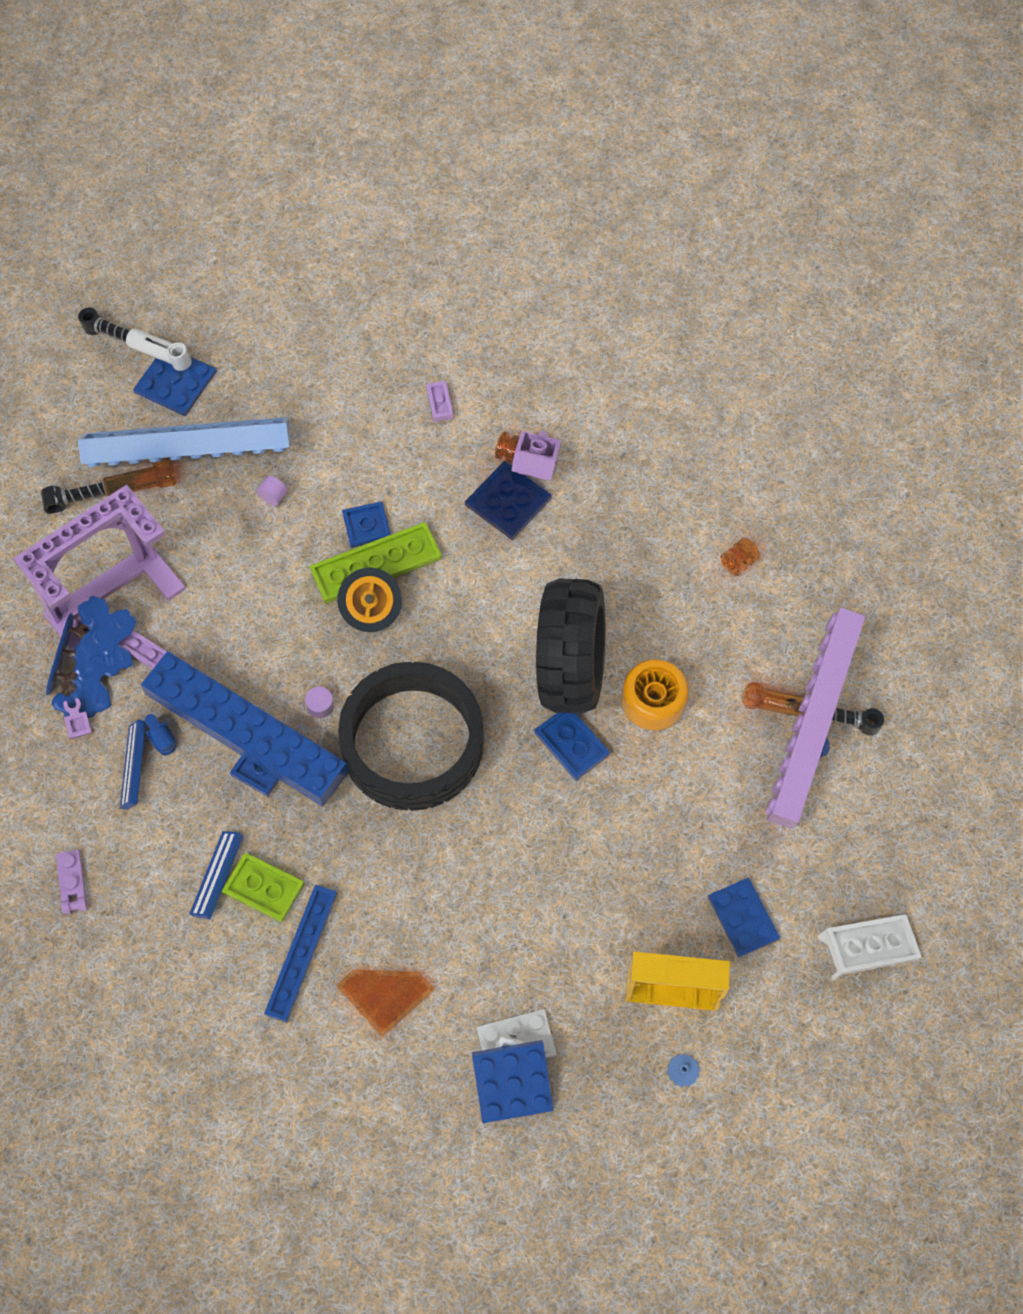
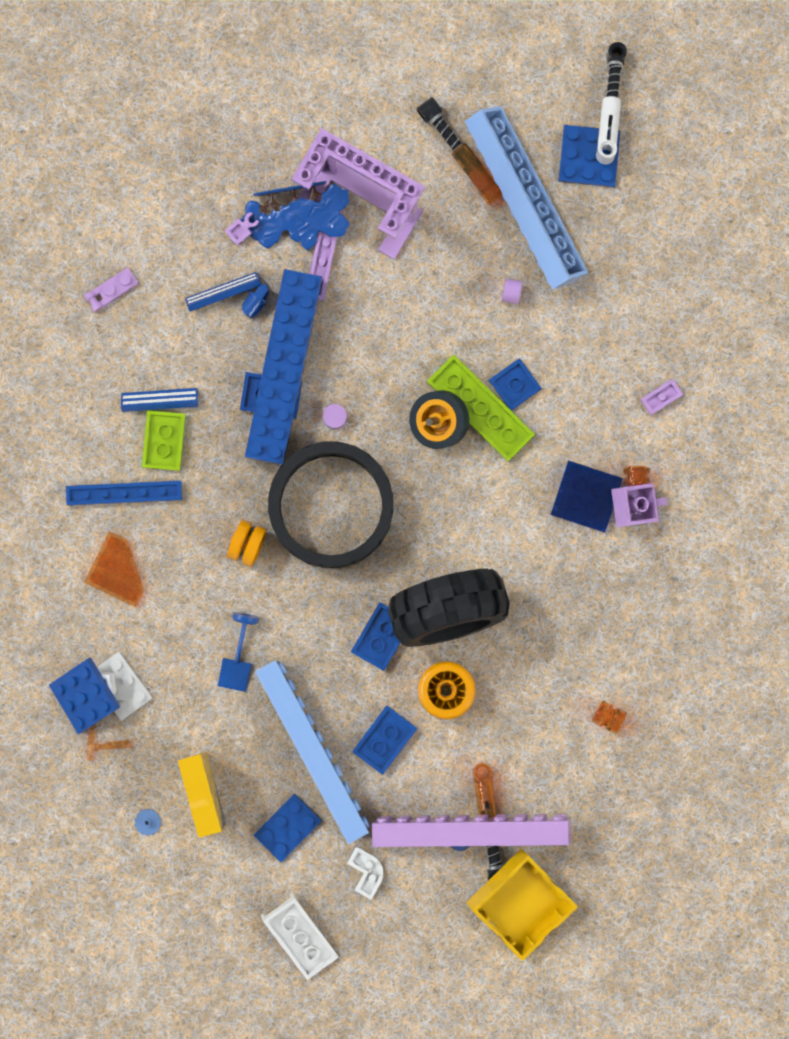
camera: 65 degrees right, 20 degrees up
(415, 836) = (244, 542): none -> light orange wheel
(550, 910) = (235, 673): none -> blue piece
(579, 1081) = (108, 745): none -> clear orange piece
(670, 852) = (312, 751): none -> light blue brick
(683, 780) = (384, 740): none -> blue plate
(821, 845) = (371, 870): none -> white plate
(908, 703) = (521, 904): none -> yellow tile

